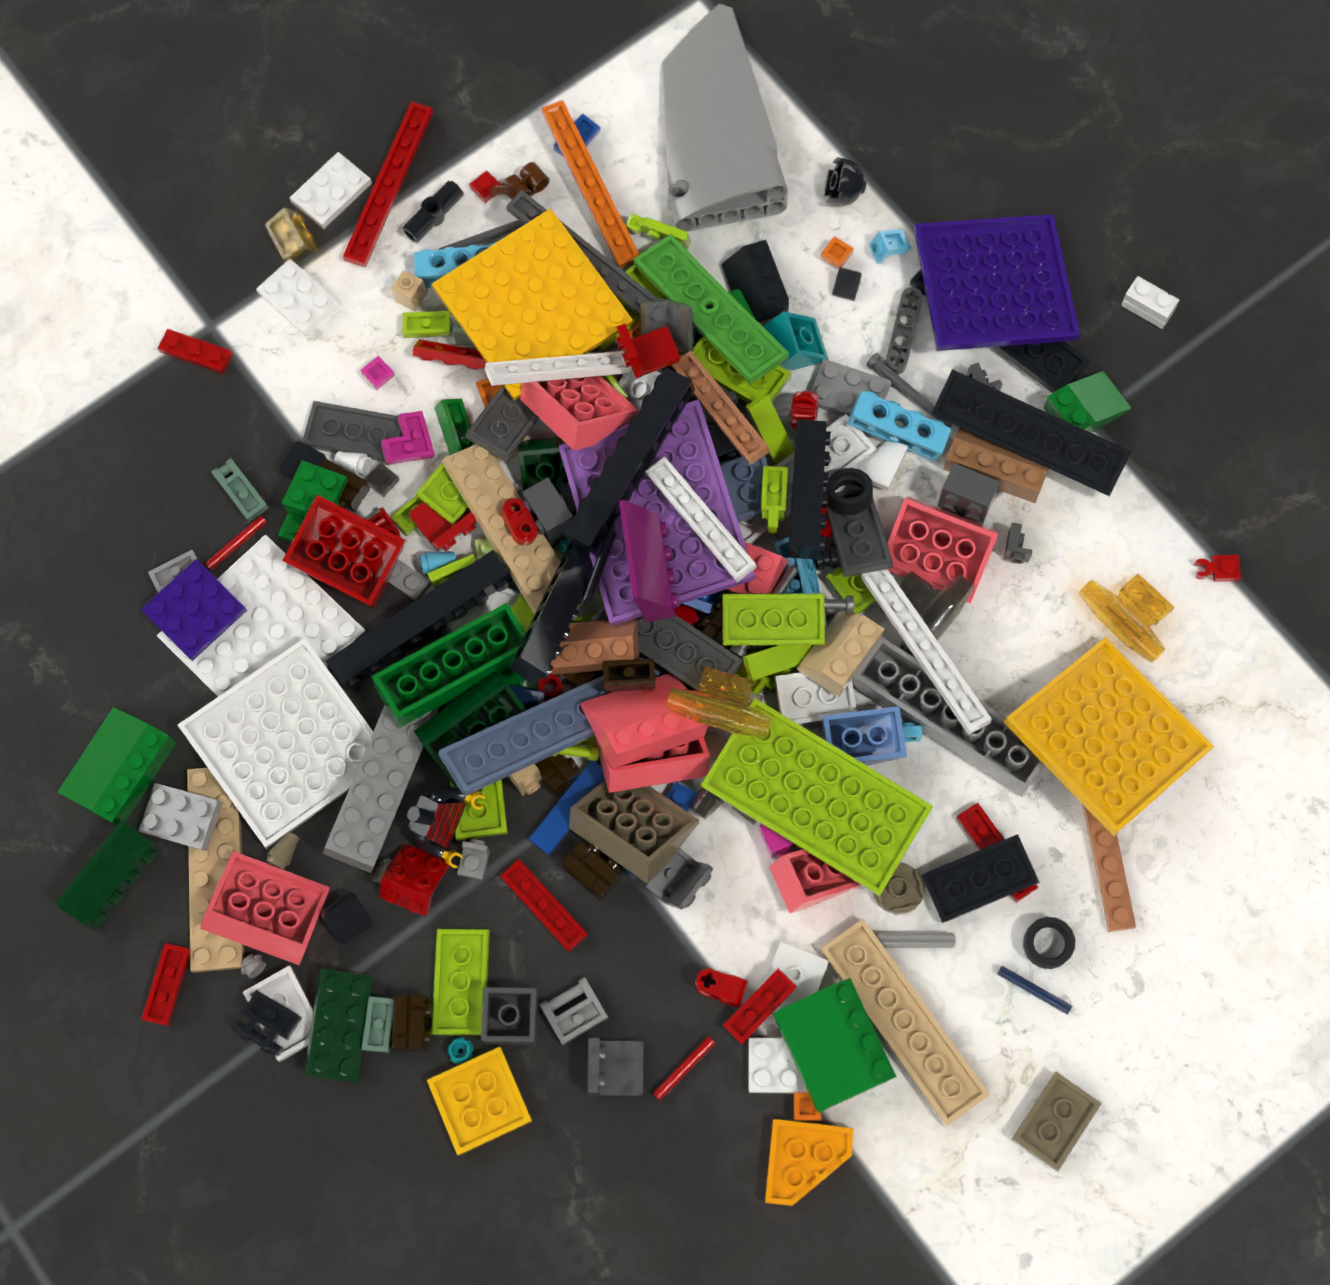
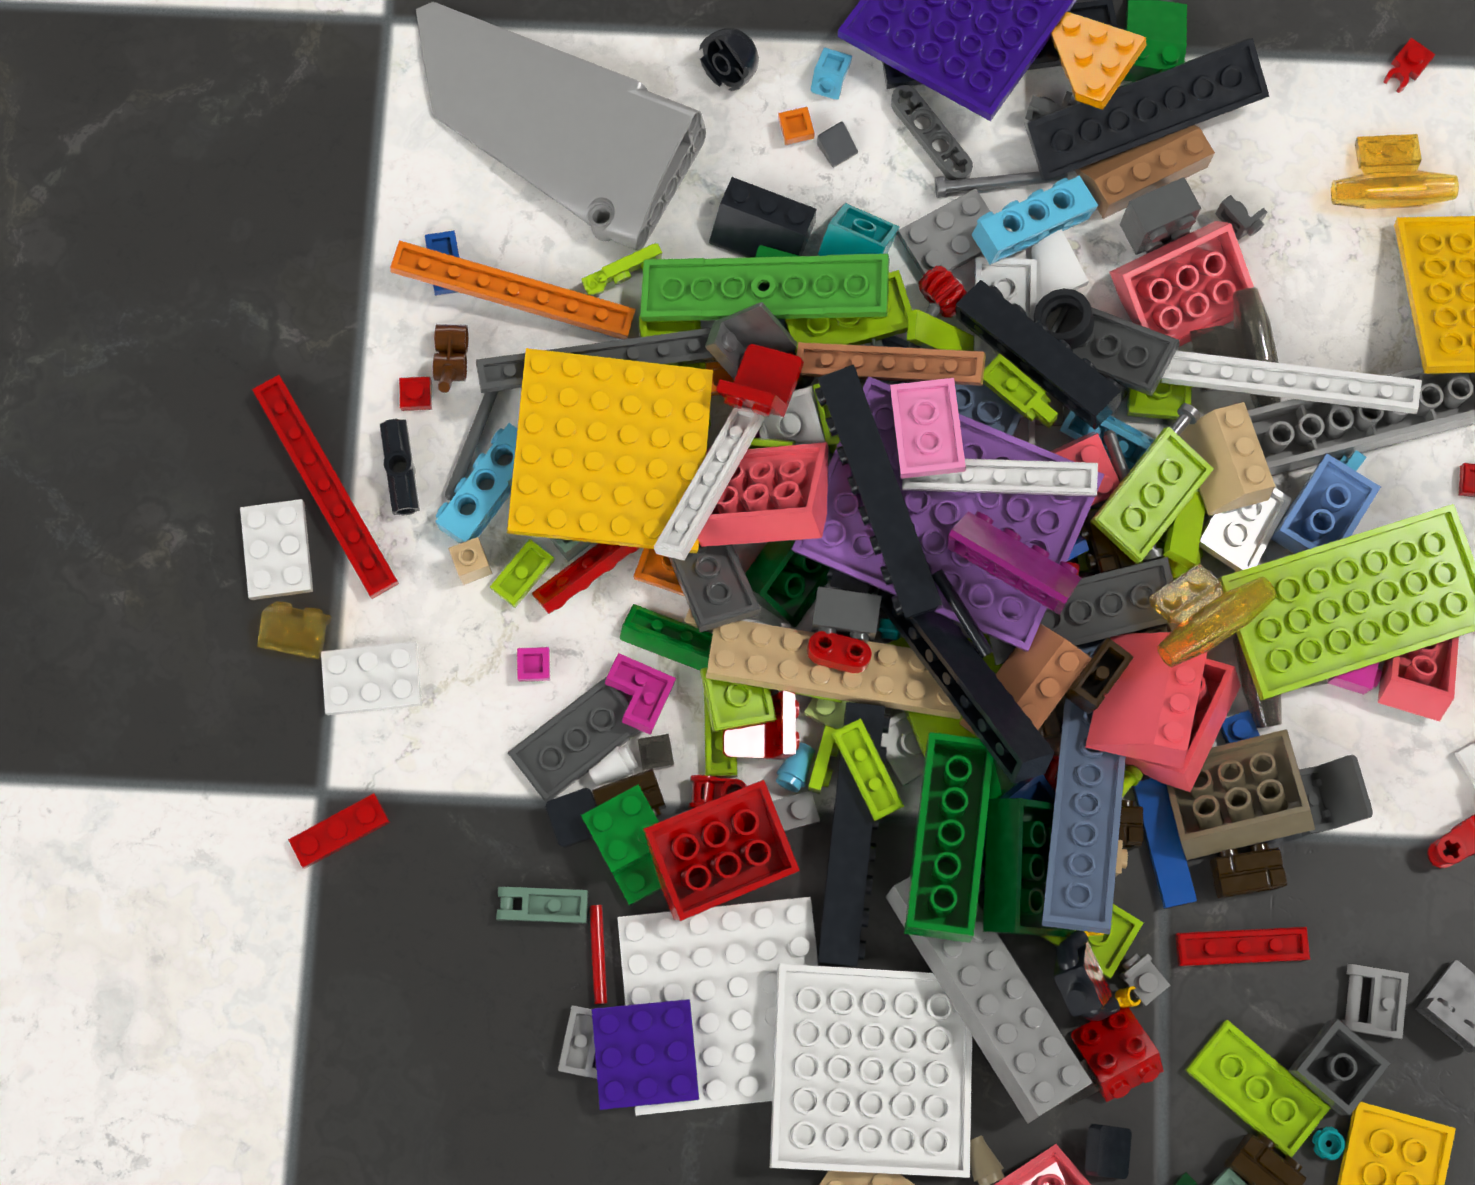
camera: 55 degrees left, 5 degrees up
(461, 593) = (867, 769): none -> lime tile
(691, 452) = (927, 428): none -> bright pink plate
(1033, 375) = (1095, 56): none -> light orange plate

